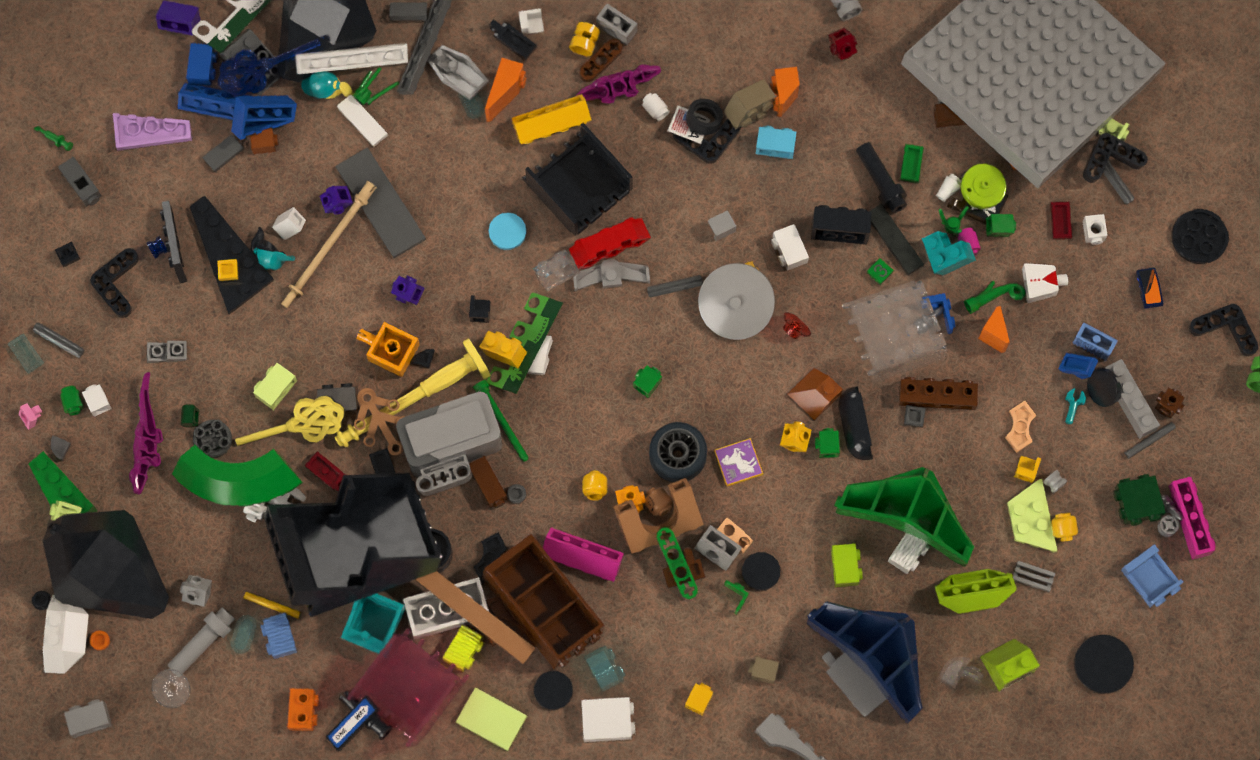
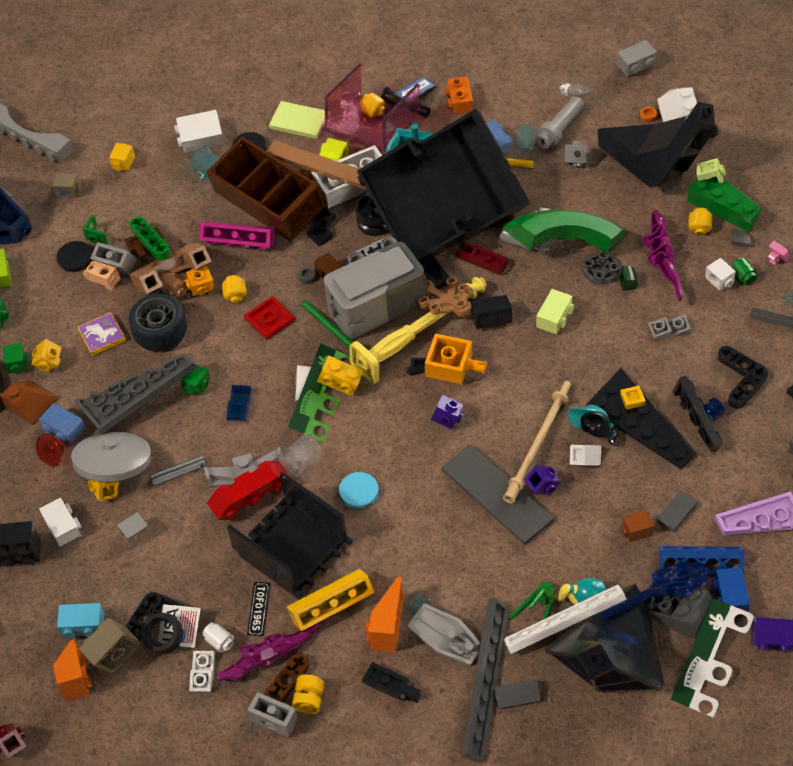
camera: 175 degrees right, 20 degrees down
(94, 471) = (700, 221): none -> yellow head
(261, 112) = (644, 542): blue wedge -> none
(314, 426) = (513, 287): light yellow piece -> none
(362, 120) = (537, 568): white tile -> none
(404, 706) = (372, 105): none -> yellow head
(479, 310) = (371, 412): black panel -> none
(531, 21) = (374, 707): white panel -> none
(563, 447) = (269, 318): none -> red tile
(607, 349) = (239, 403): none -> clear blue slope
(617, 131) = (258, 609): none -> black sticker
(673, 82) = (202, 671): none -> white slope
(720, 367) = (130, 394): none -> dark grey wing
(784, 356) = (62, 424): none -> medium blue brick

